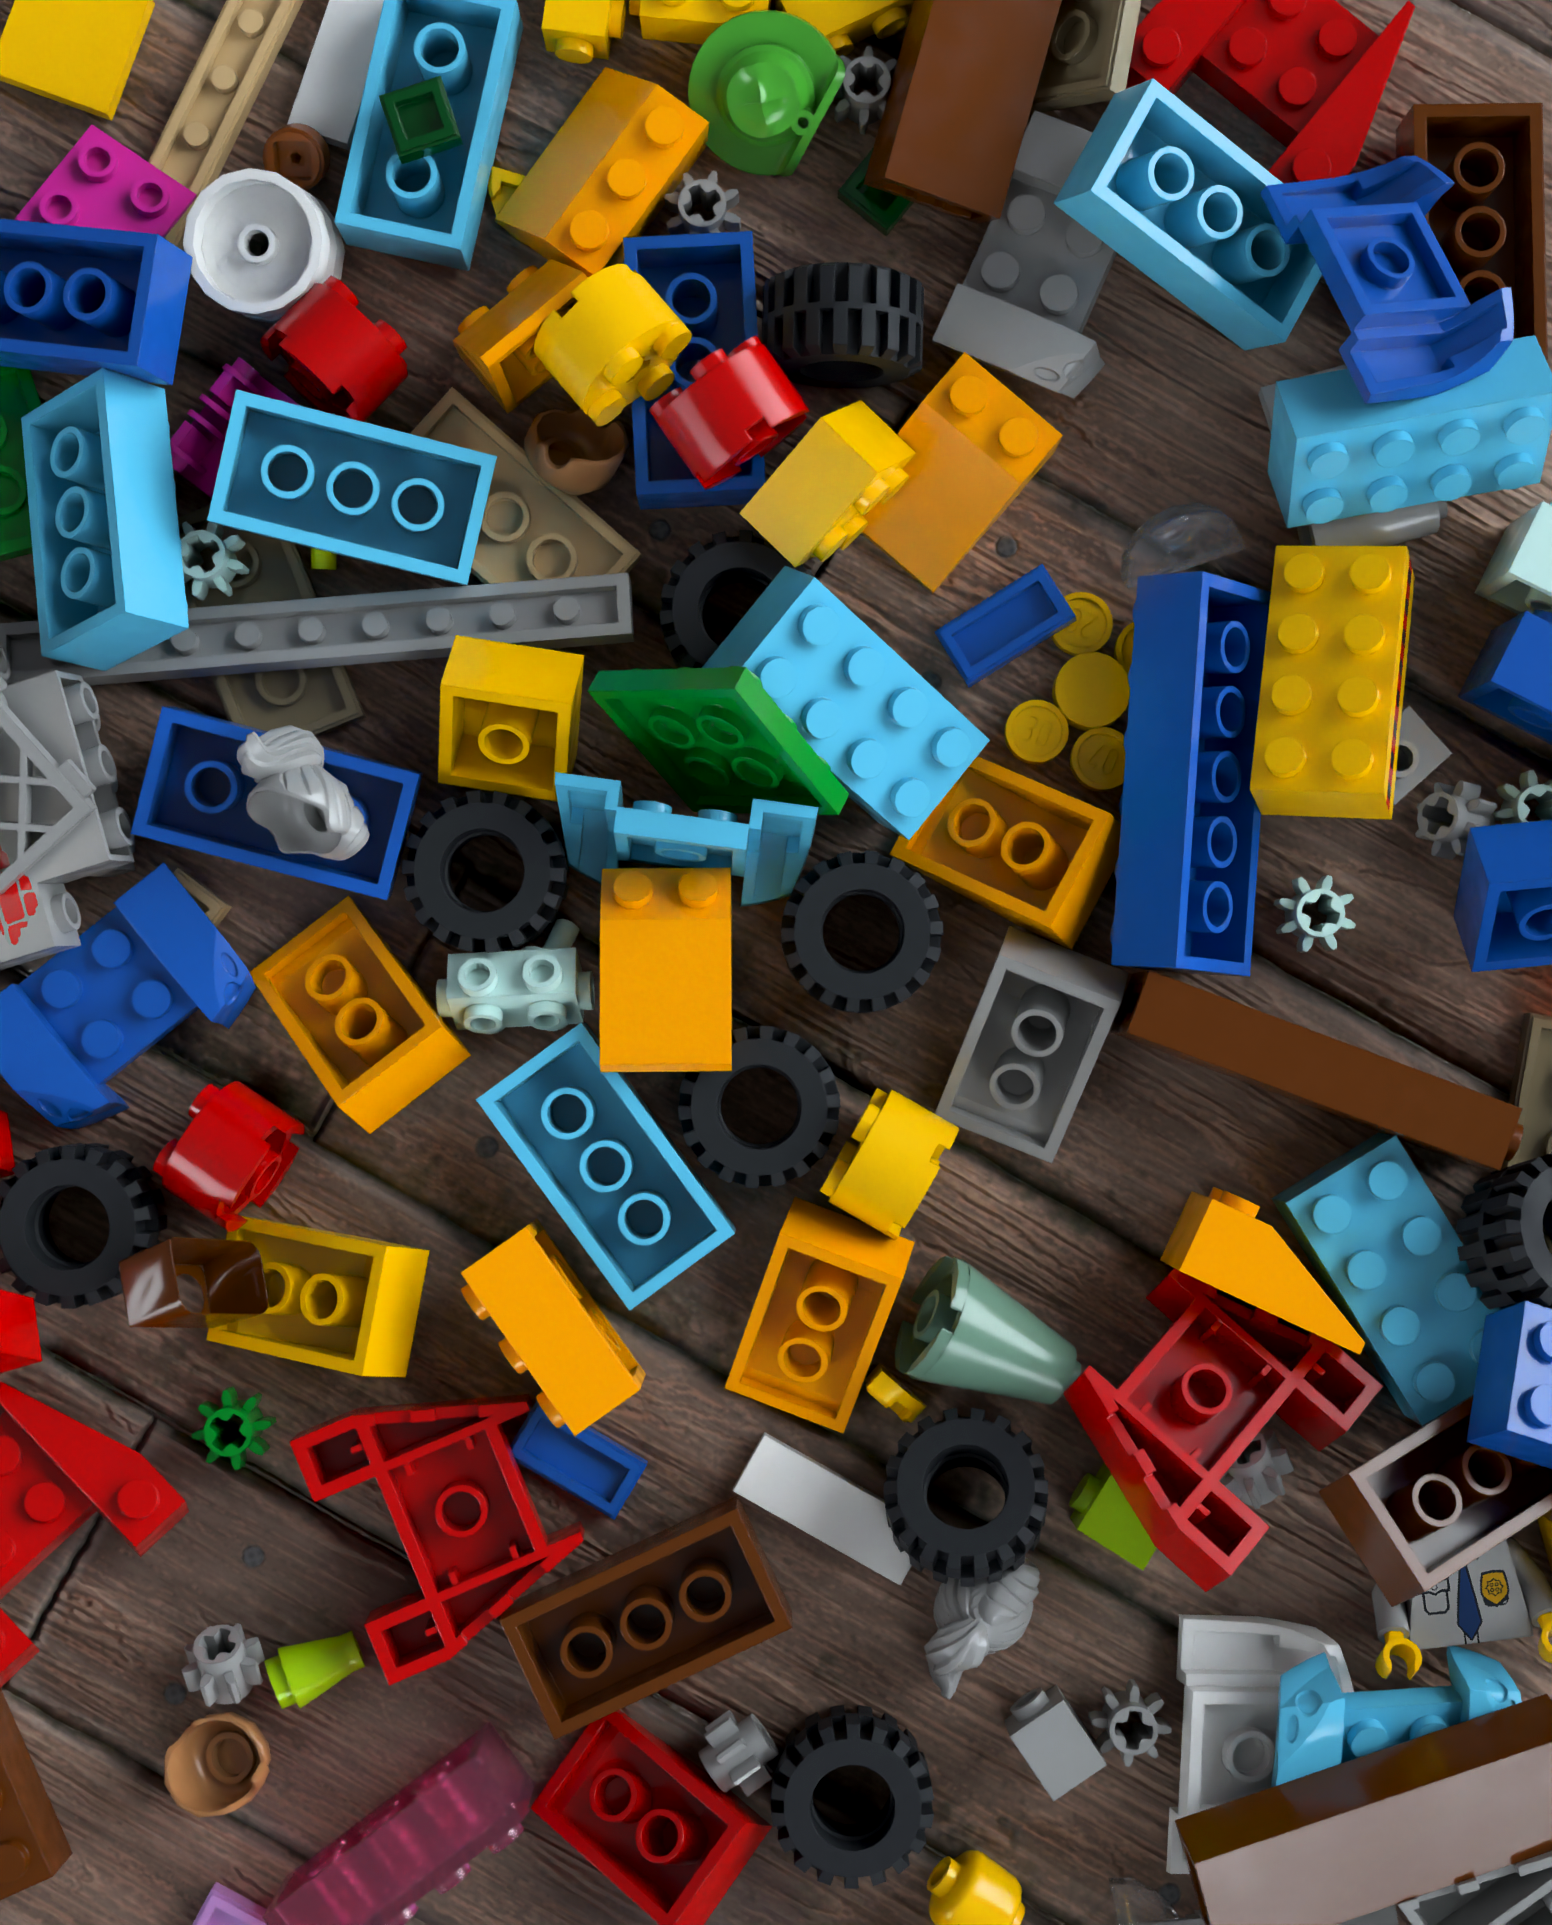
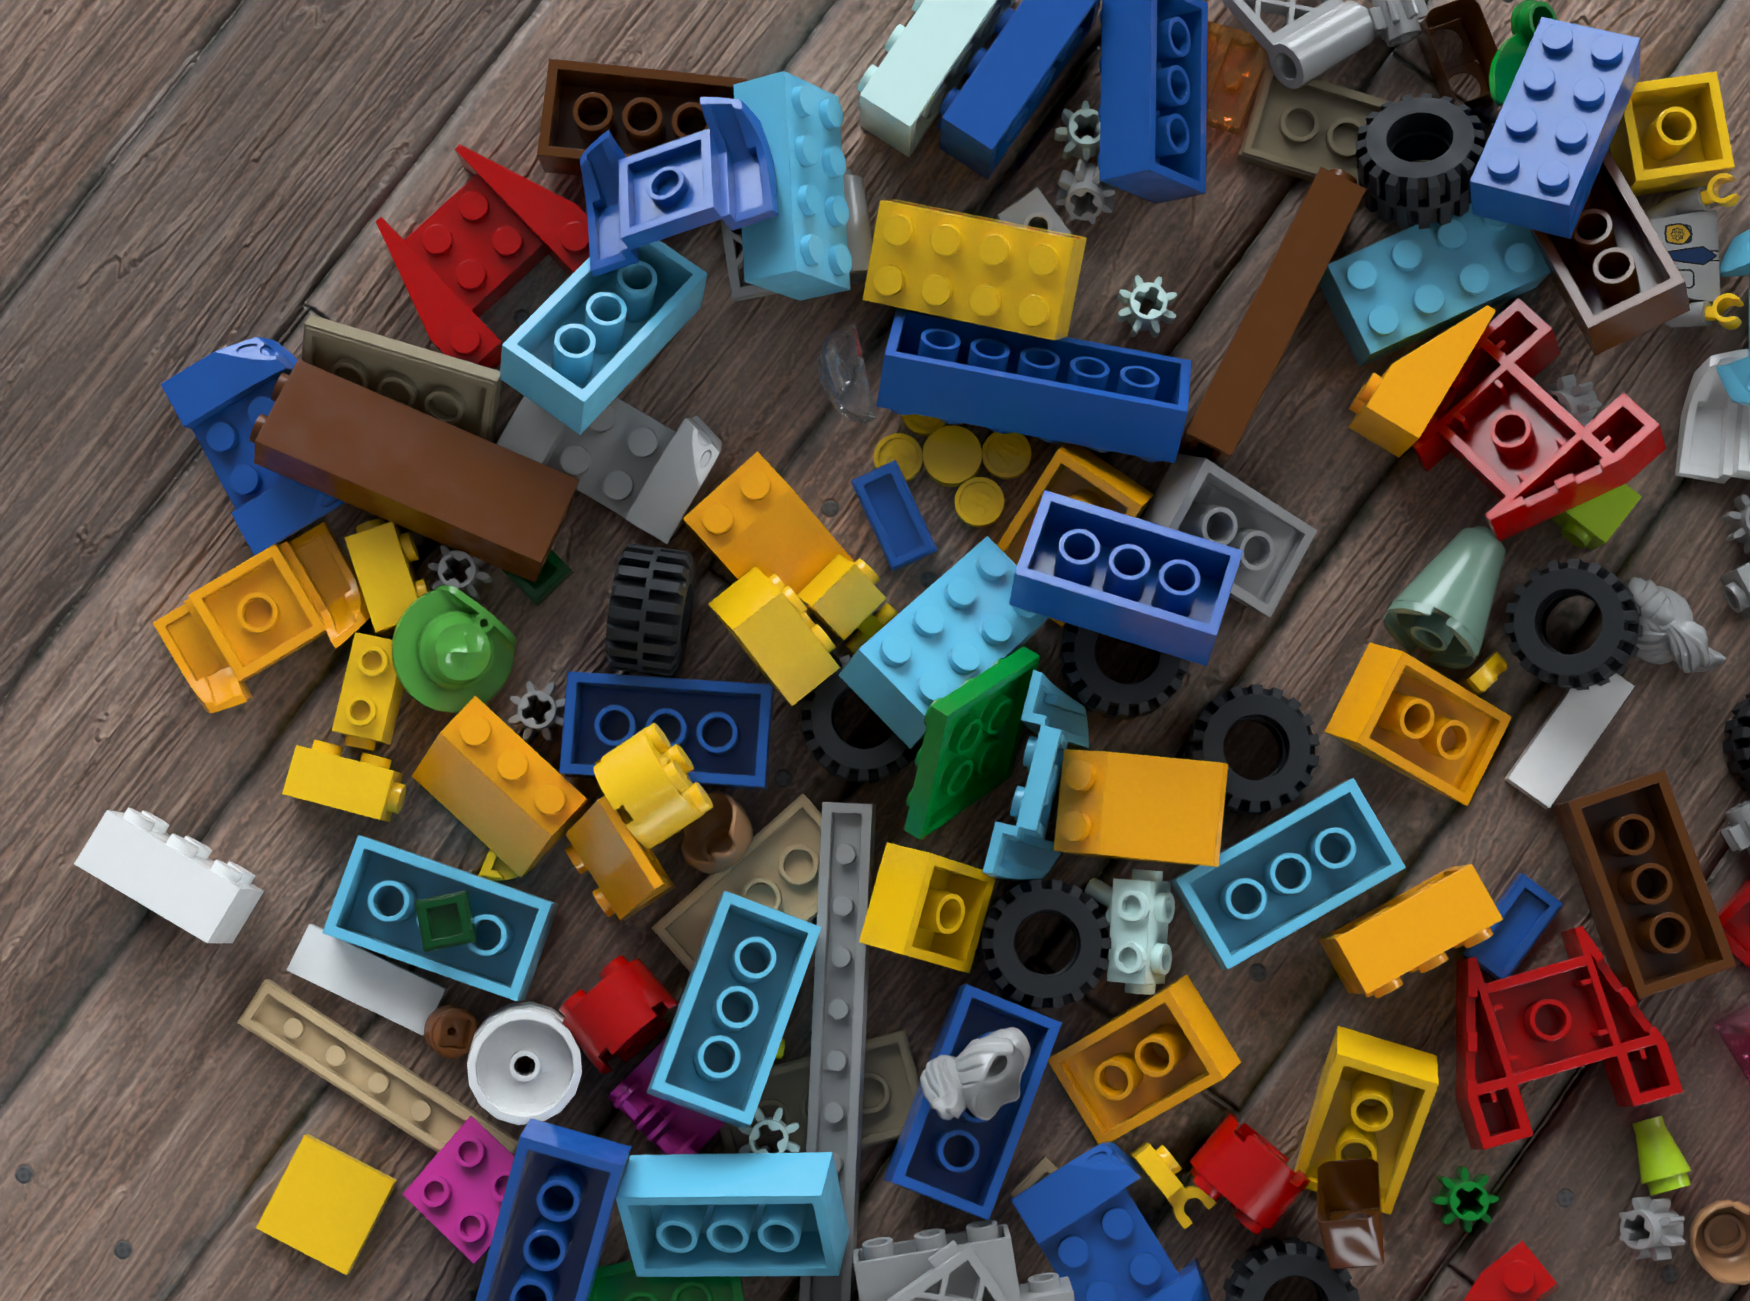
camera: 80 degrees left, 5 degrees down
(224, 1049) = (1161, 1170): none -> yellow plate
(730, 412) = (717, 701): red brick -> none
(889, 574) = (844, 601): none -> yellow brick
(891, 1165) = (1308, 652): yellow brick -> none
(951, 911) = (1125, 577): none -> blue brick

